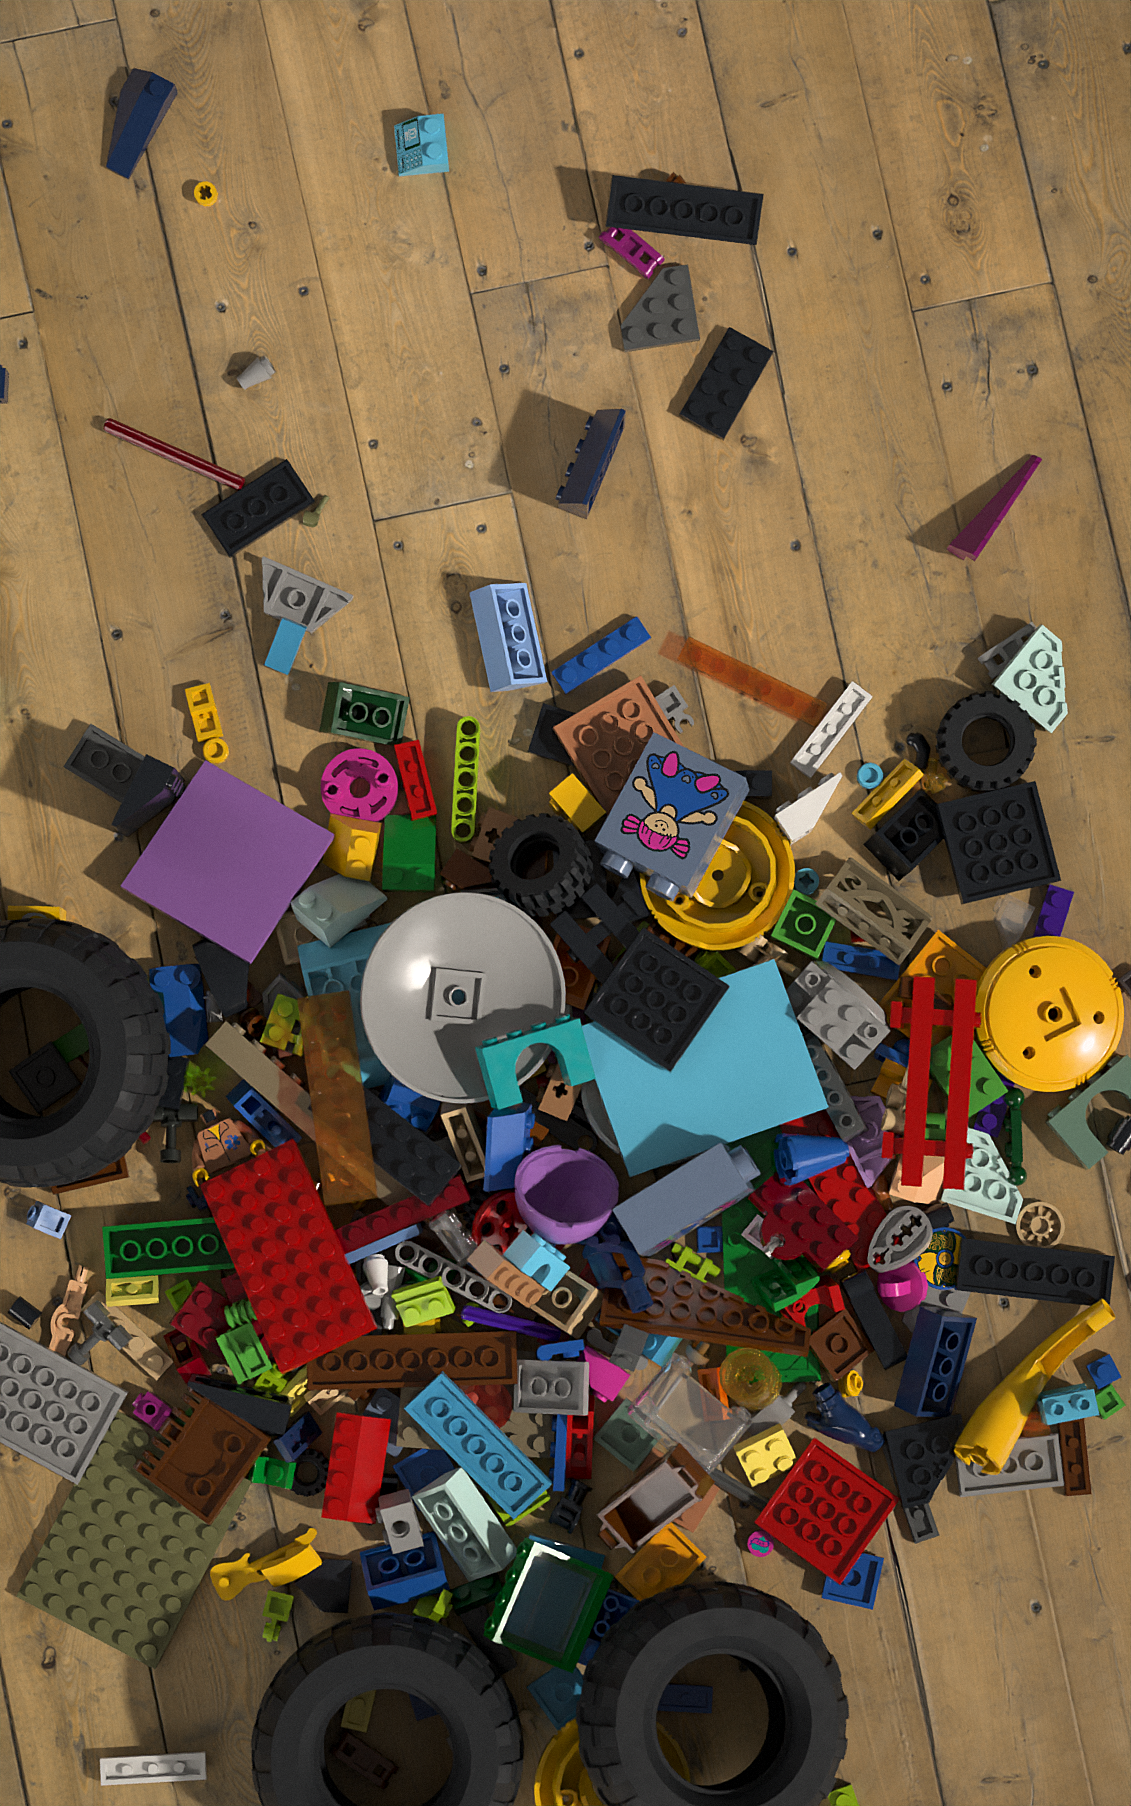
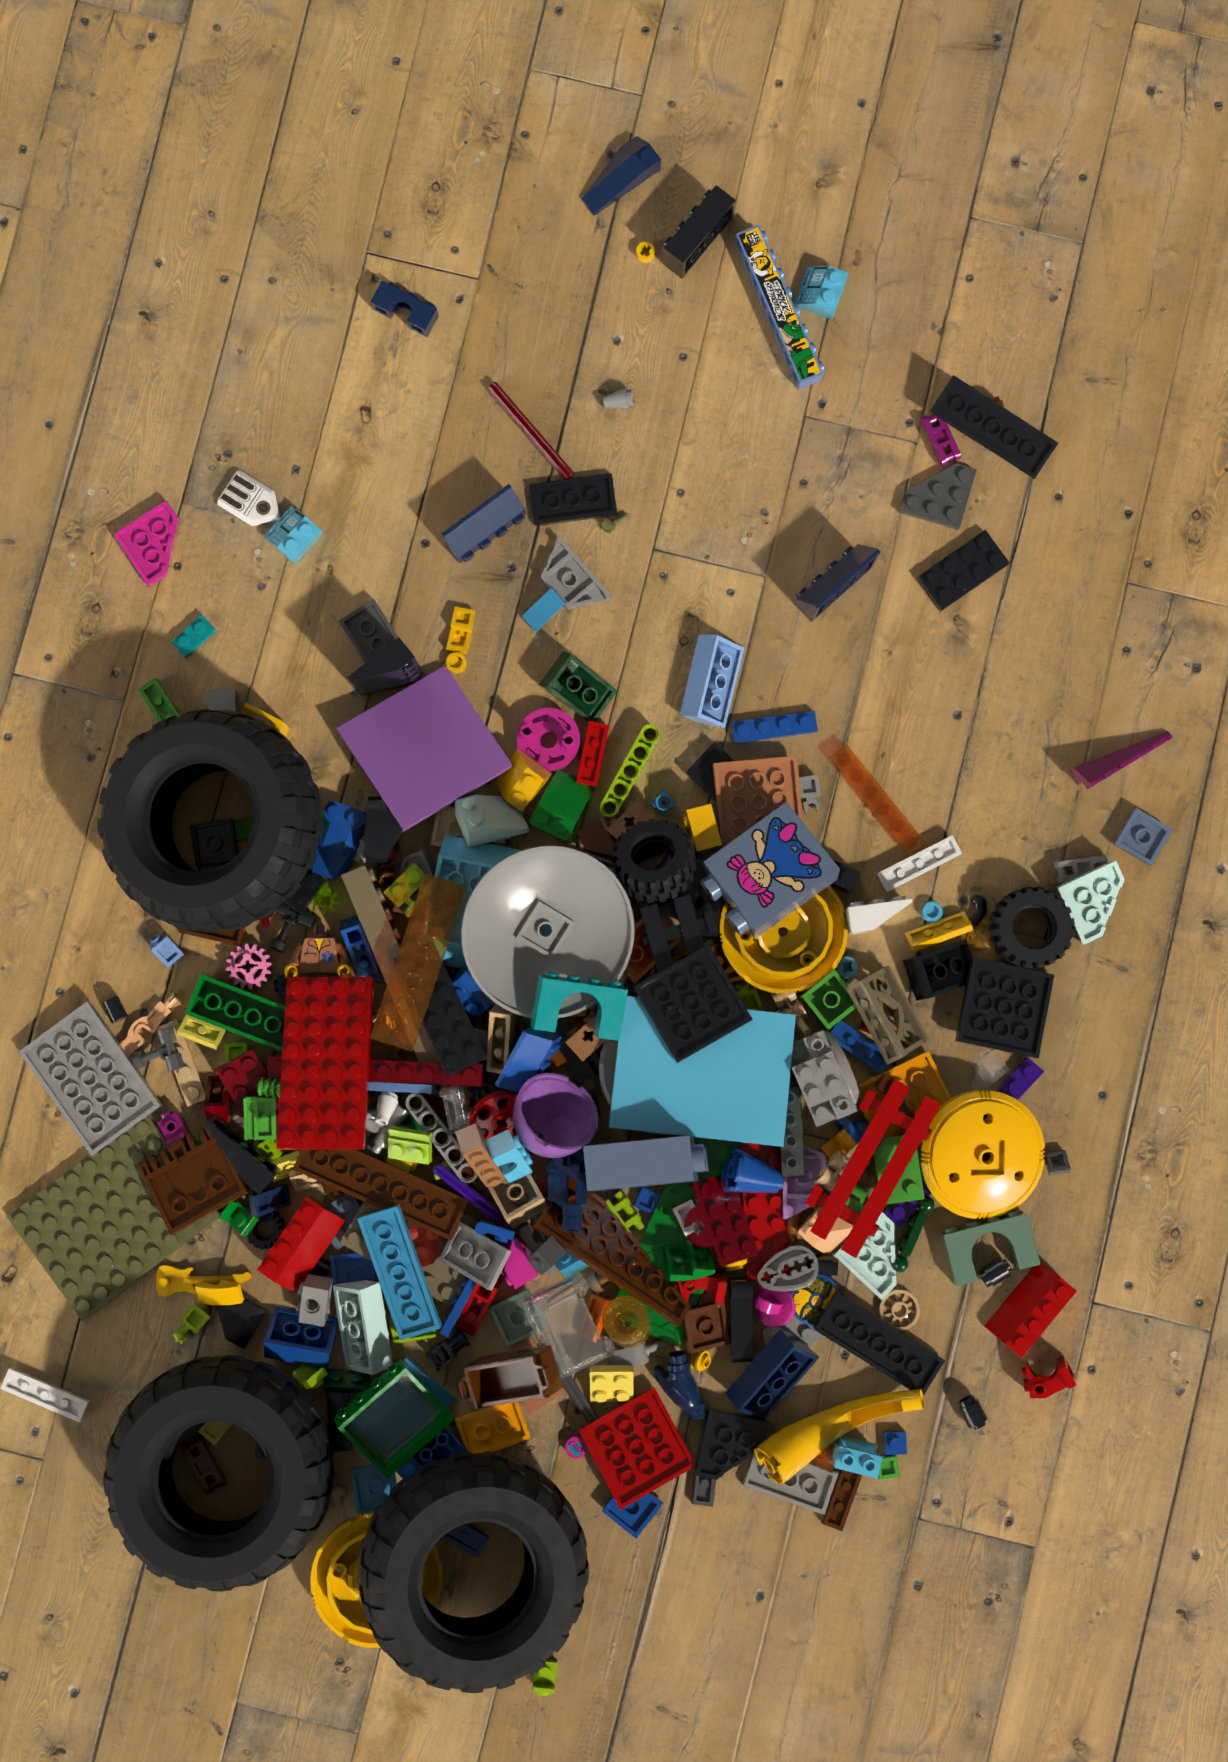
camera: 25 degrees right, 0 degrees up
(157, 1205) = (250, 976): none -> bright pink gear
(174, 583) = (484, 524): none -> dark blue slope
(254, 145) = (698, 231): none -> black brick
(383, 186) = (779, 307): none -> brick
(517, 790) = (657, 803): none -> dark azure plate
(1060, 584) = (1143, 837): none -> sand blue plate

